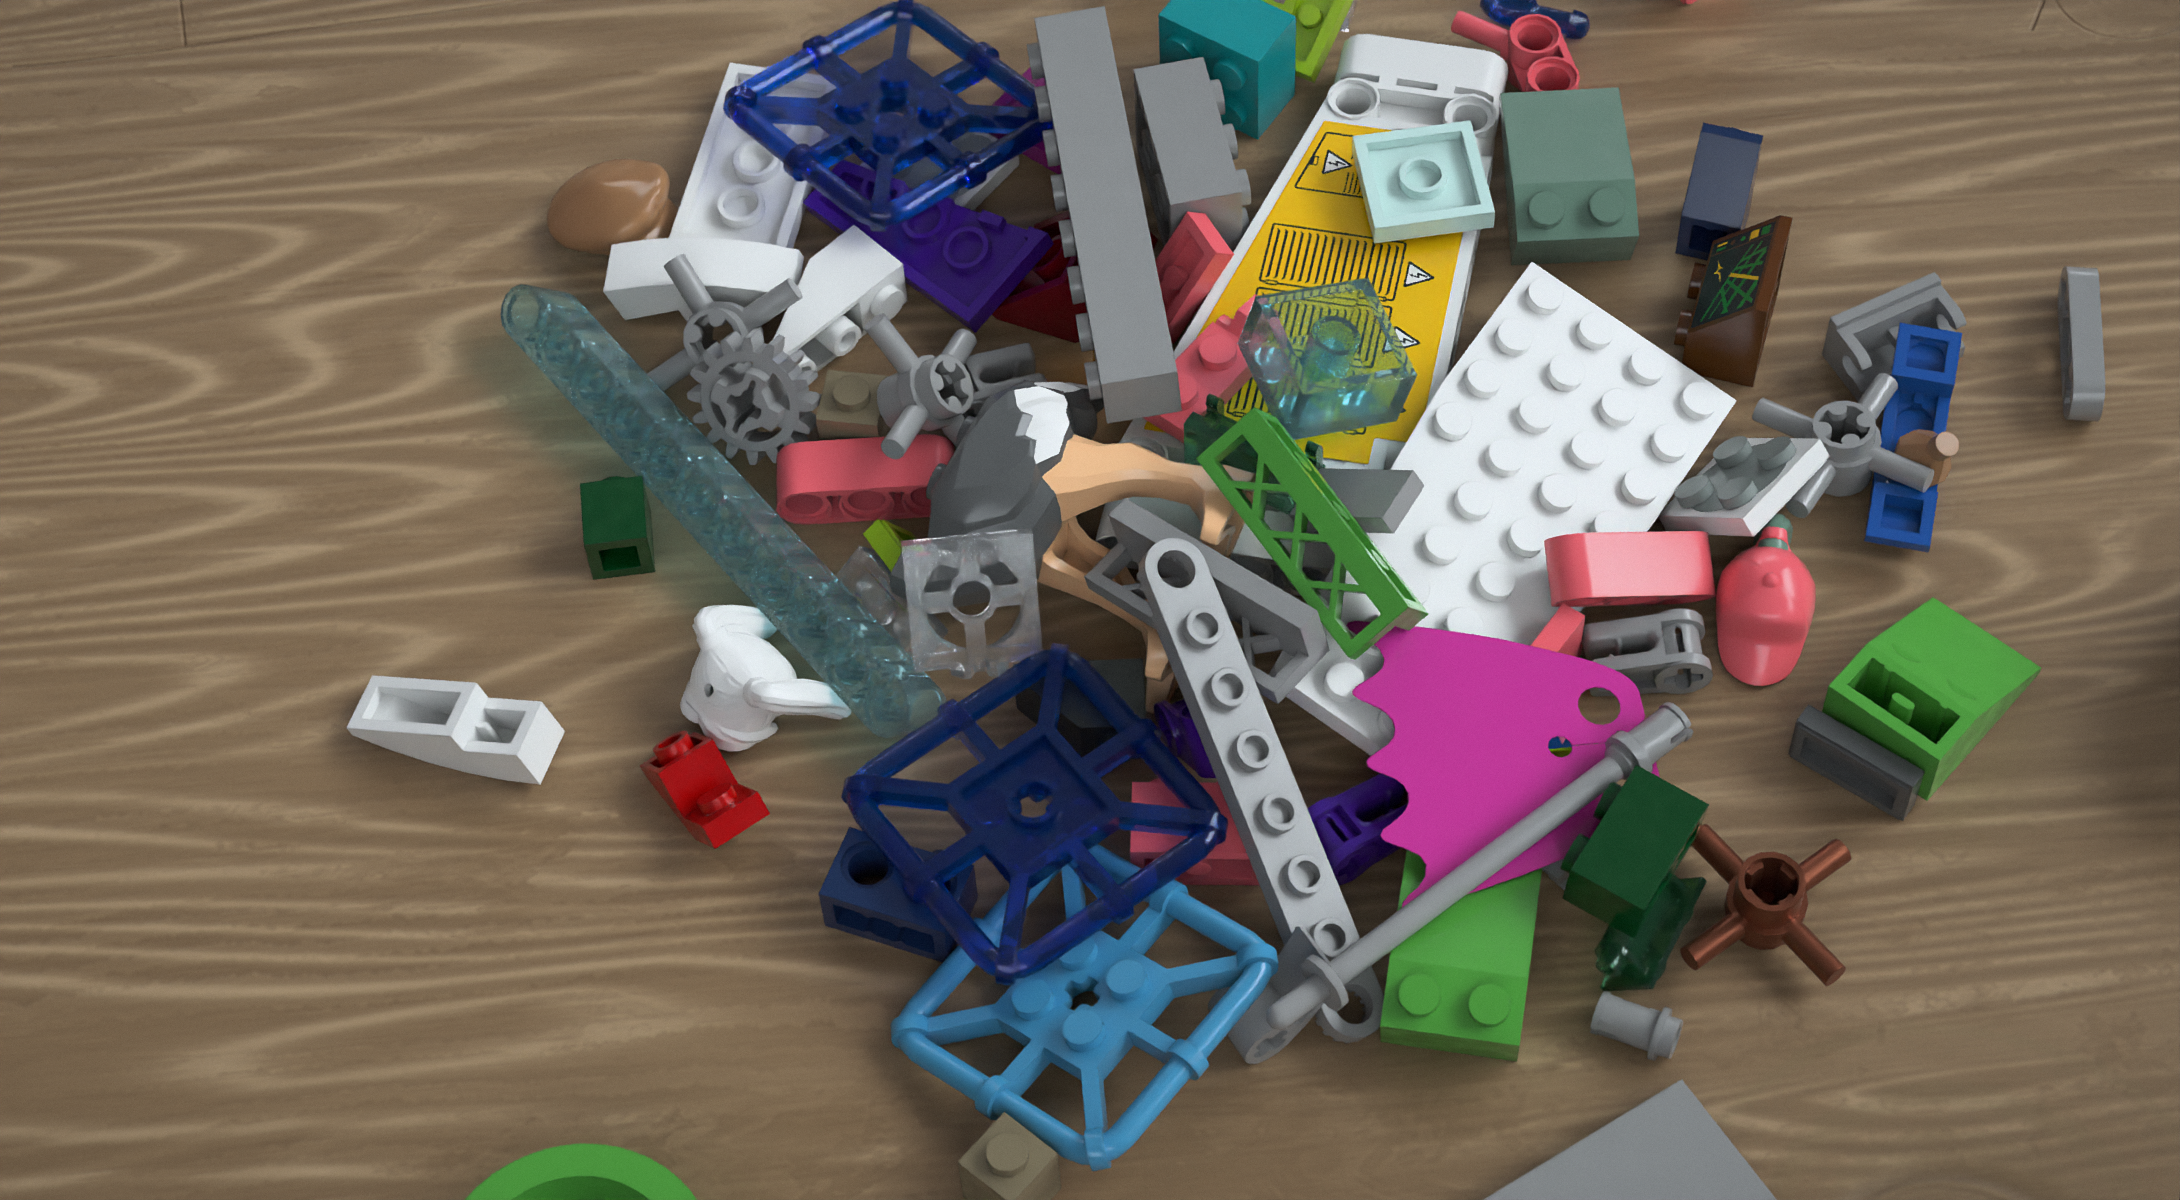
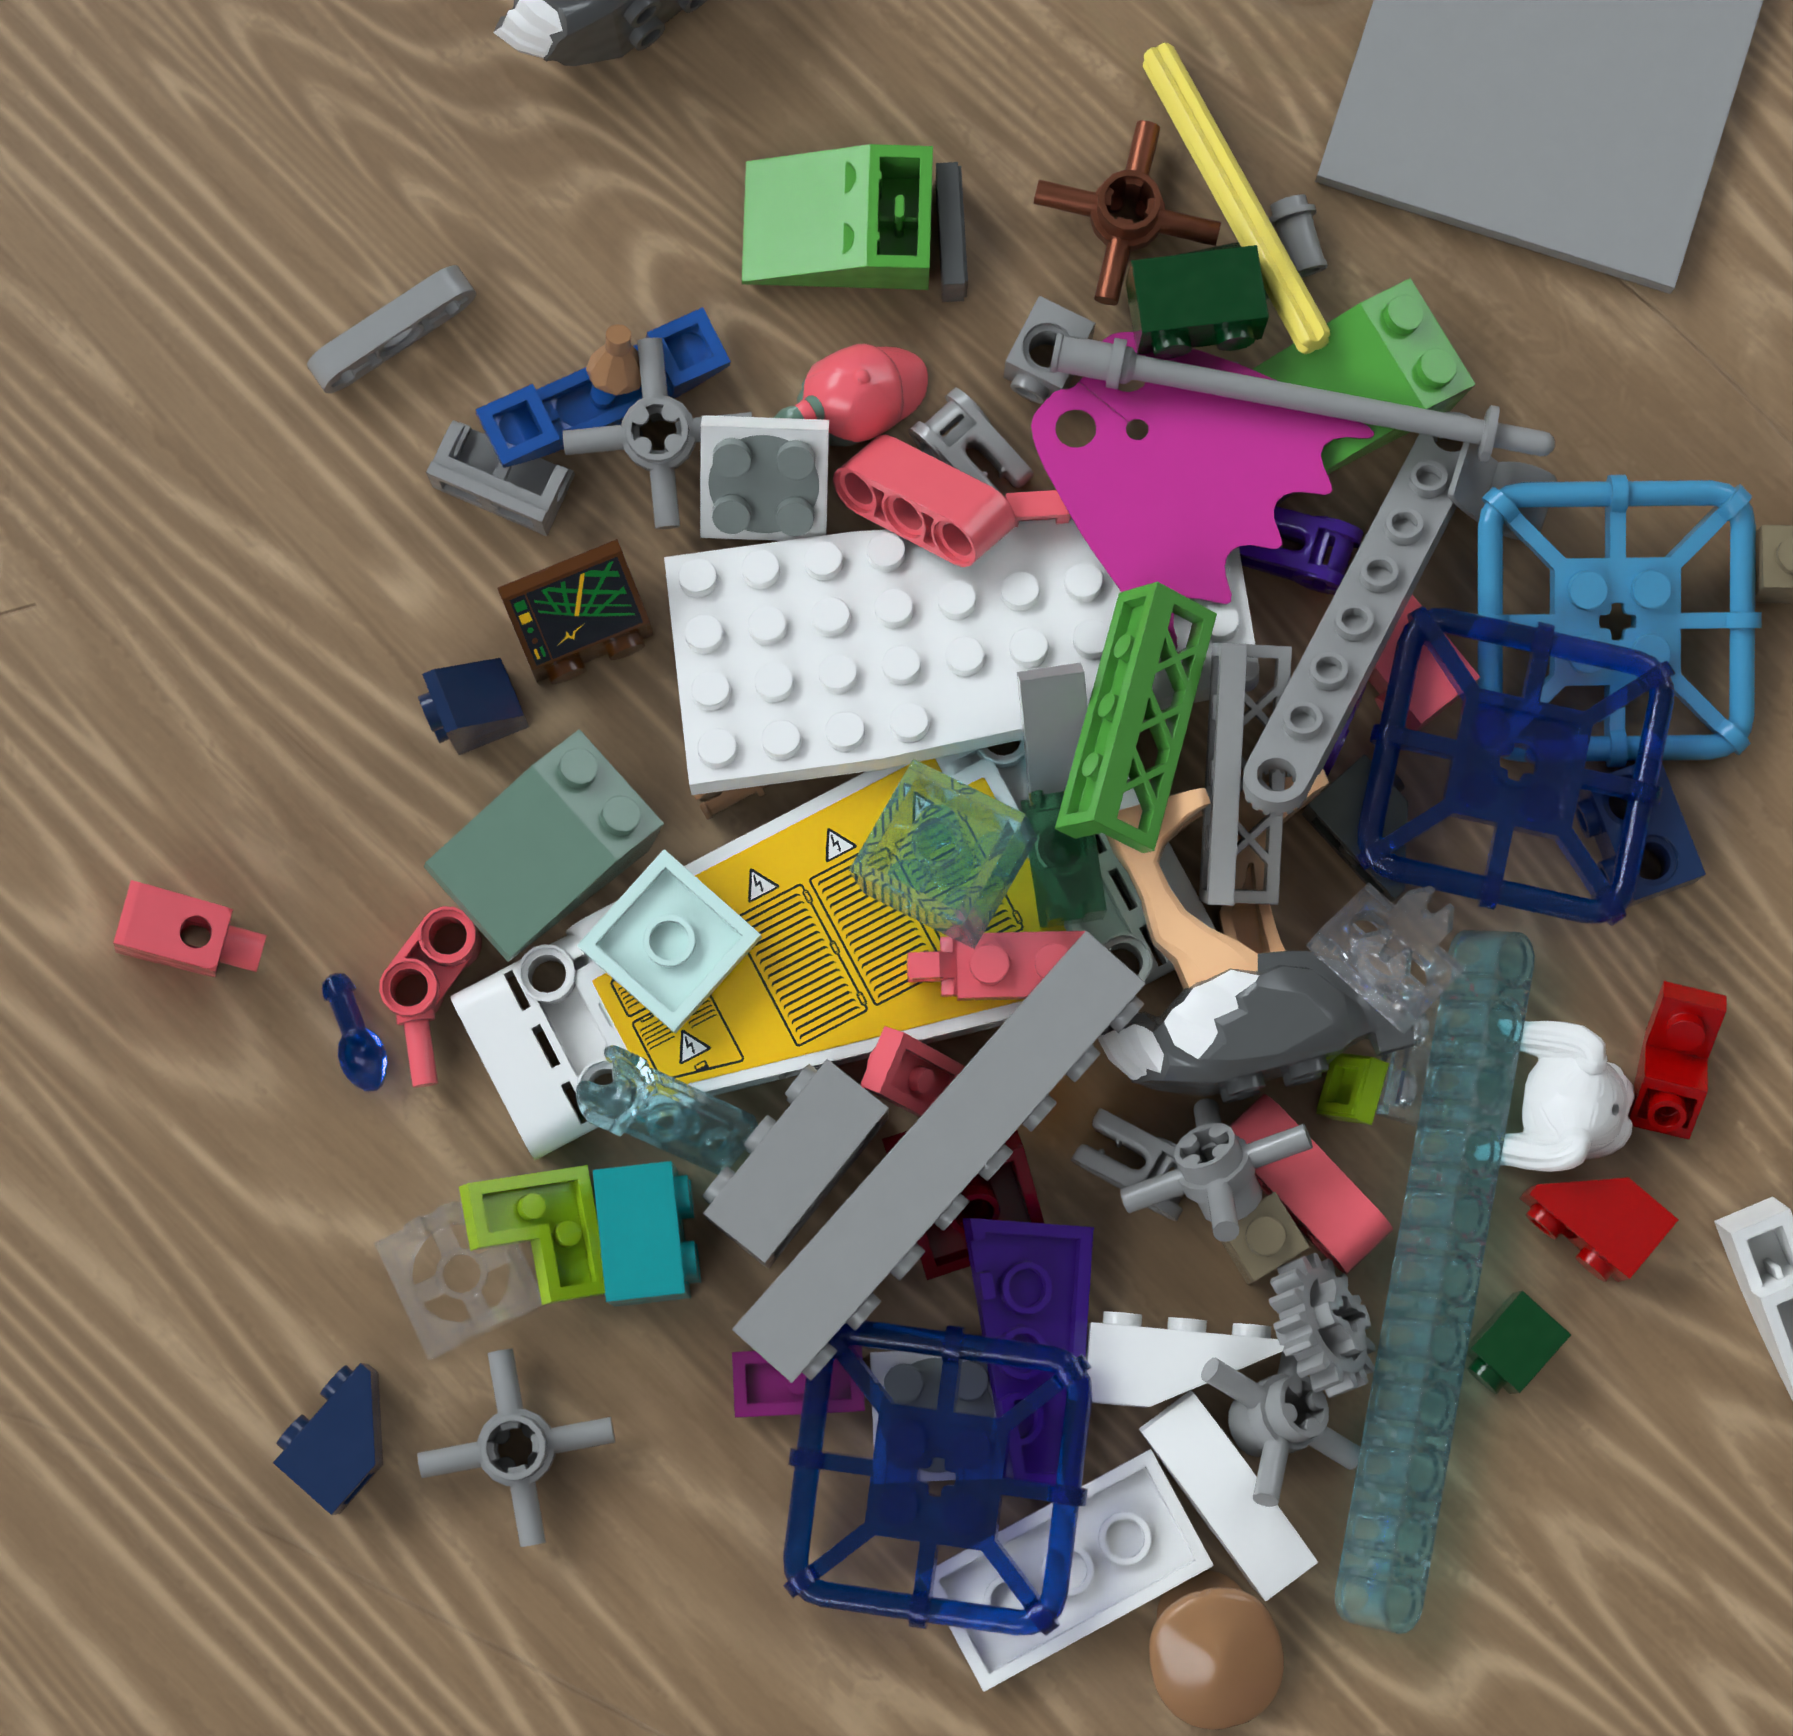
camera: 135 degrees left, 25 degrees up
(640, 647) = (1605, 1219): none -> red slope
(1335, 83) = (665, 1113): none -> clear light blue plate
(1710, 975) = (1236, 197): none -> light yellow axle
(1716, 769) = (1041, 328): none -> light grey brick

